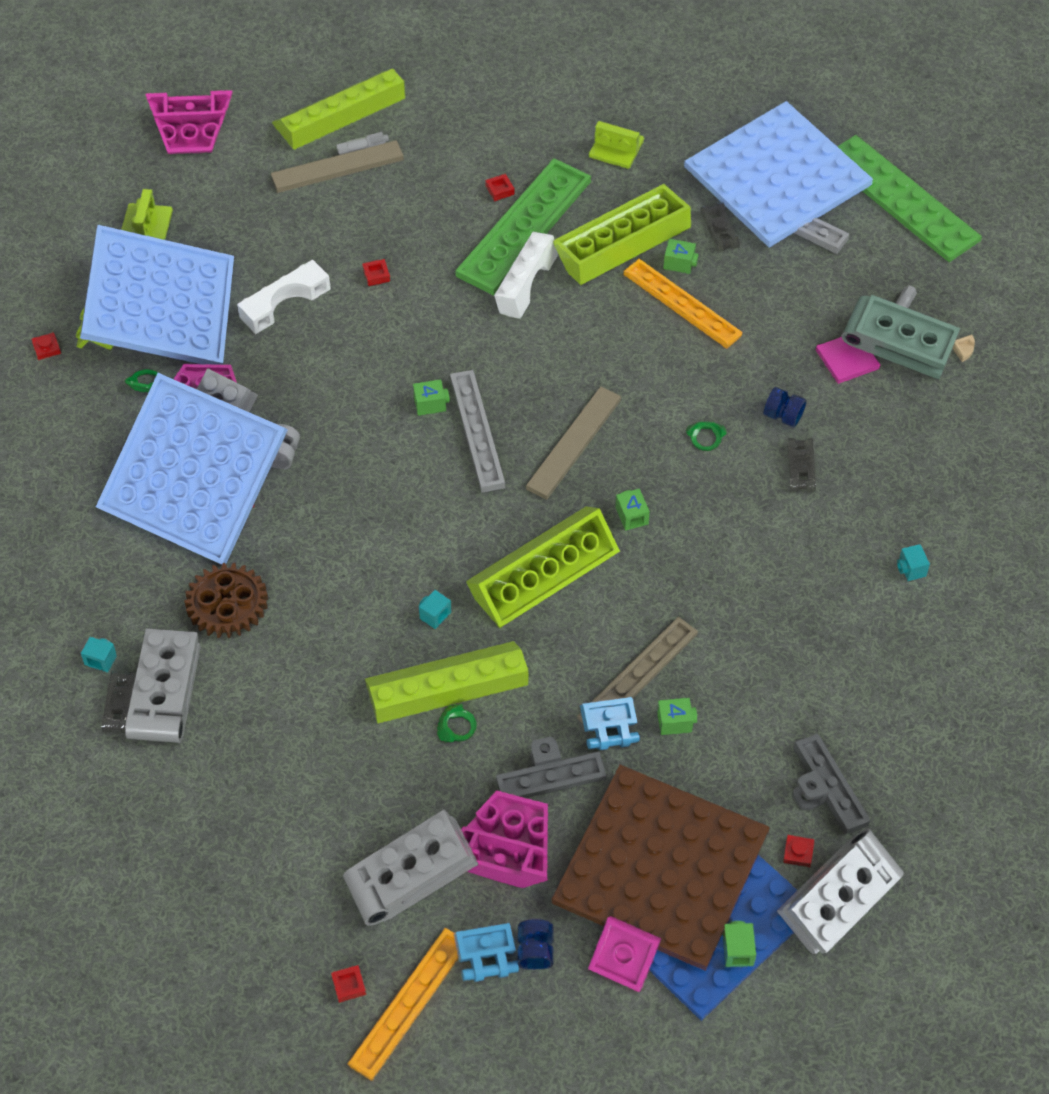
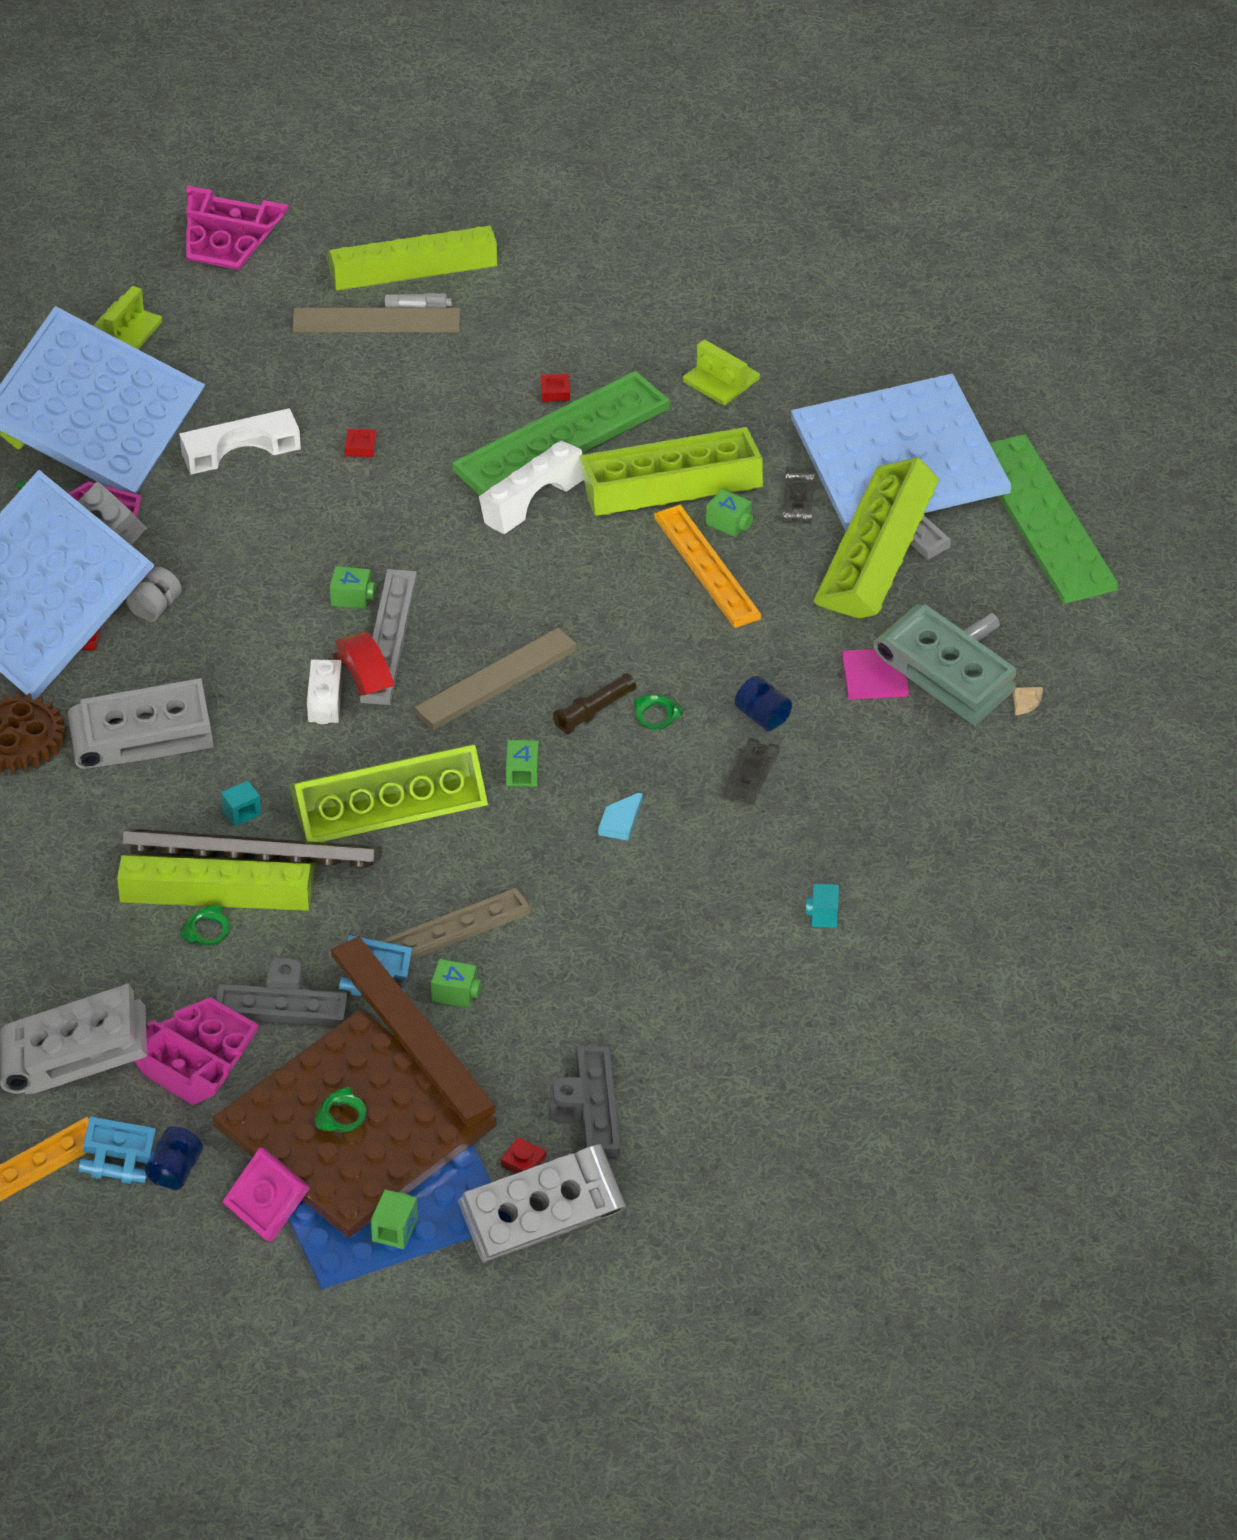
camera: 20 degrees right, 10 degrees down
(325, 564) = (140, 724): none -> light grey hinge
(452, 492) = (324, 691): none -> white brick
(470, 643) = (263, 847): none -> plate
(477, 460) = (365, 662): none -> red arch
(648, 850) = (343, 1096): none -> green piece
(654, 449) = (584, 708): none -> dark brown pin
(674, 773) = (413, 1031): none -> reddish brown tile
(724, 533) = (620, 817): none -> medium azure tile
(802, 249) = (877, 538): none -> lime slope

